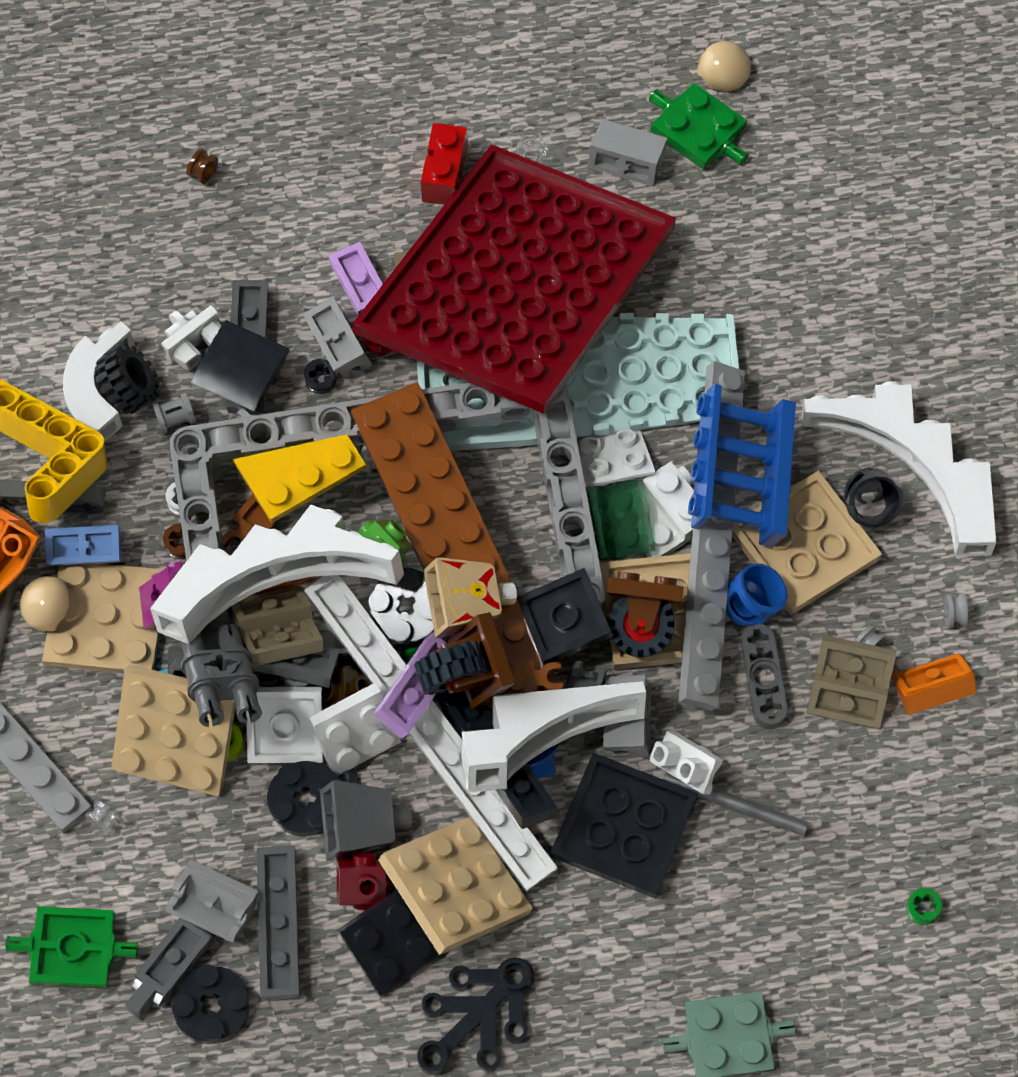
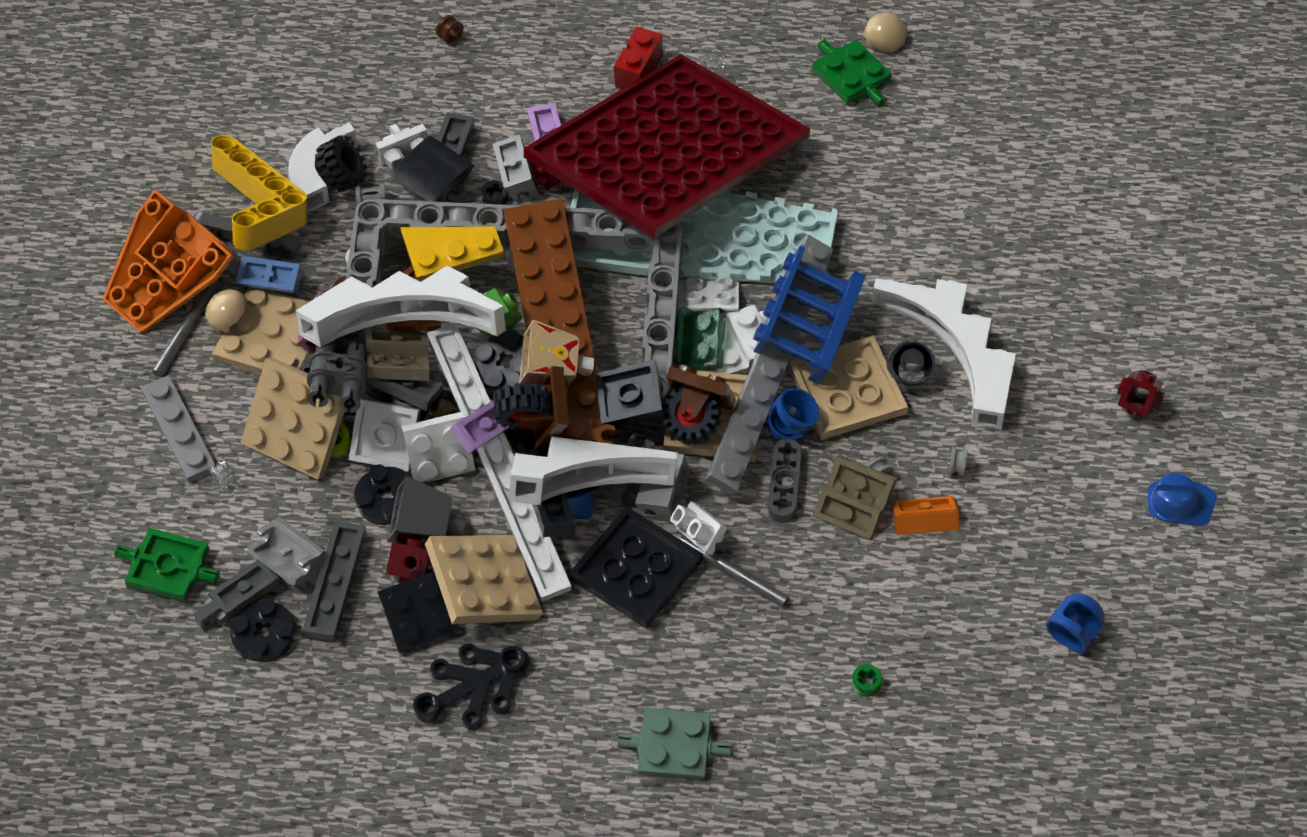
camera: 15 degrees right, 10 degrees down
(627, 152) = (787, 79): light grey hinge -> none

